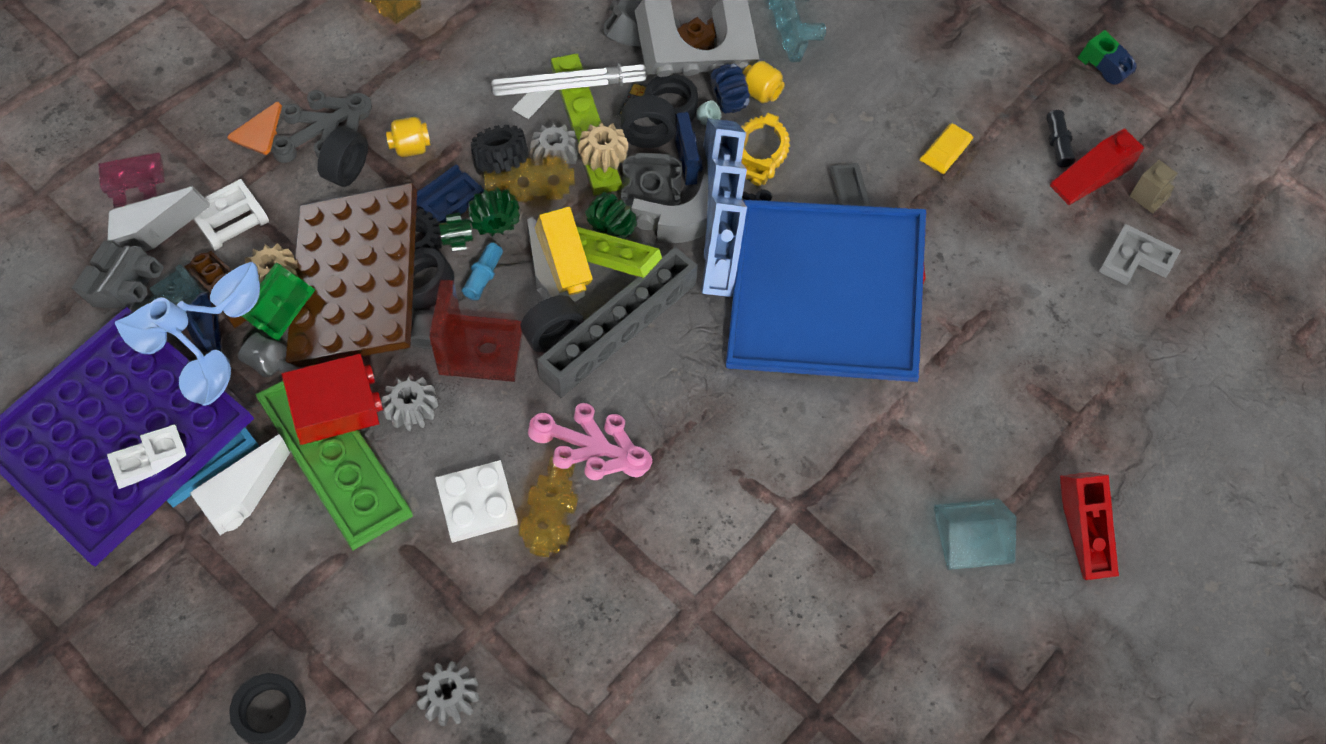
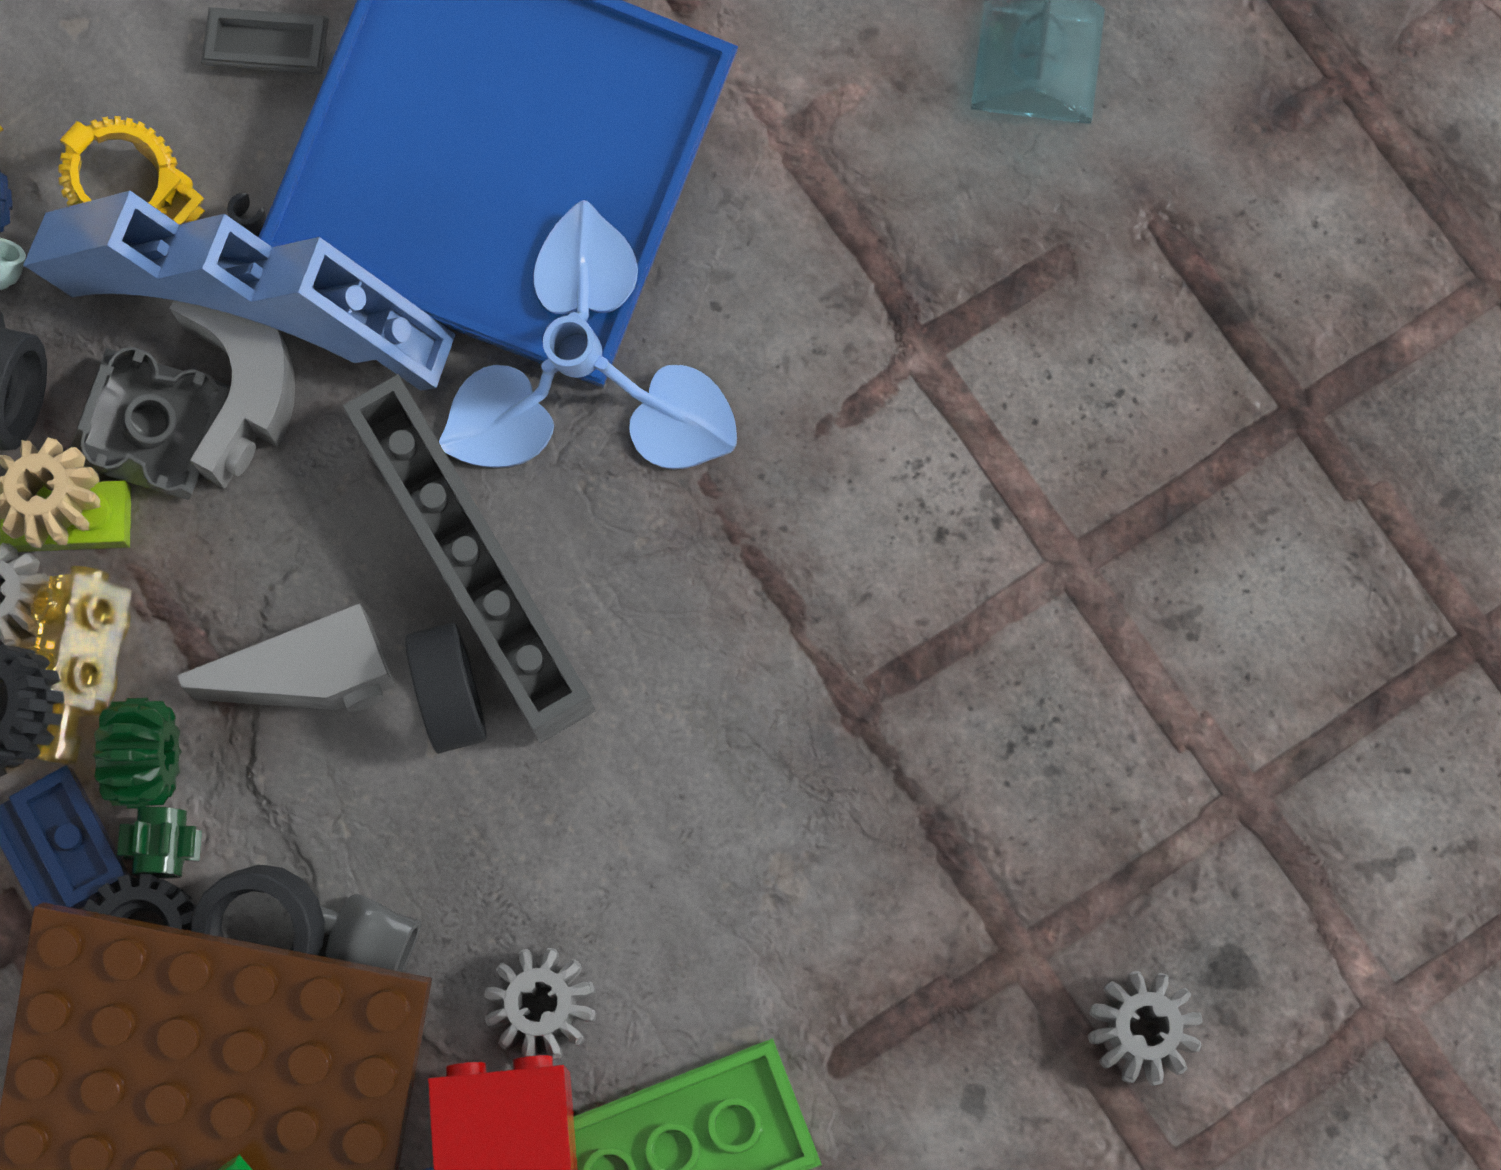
camera: 70 degrees left, 15 degrees up
(459, 337) = (437, 881): clear red bracket -> none
(476, 501) = (775, 913): white plate -> none
(482, 271) = (264, 806): dark azure axle -> none
(550, 510) = (836, 787): clear yellow brick -> none
(563, 250) = (301, 624): yellow slope -> none
(611, 216) = (220, 518): dark green gear -> none
(618, 253) = (305, 545): lime plate -> none
(626, 458) = (717, 665): bright pink plant -> none
(687, 149) = (85, 325): dark blue plate -> none
(697, 323) = (582, 268): none -> light blue plant

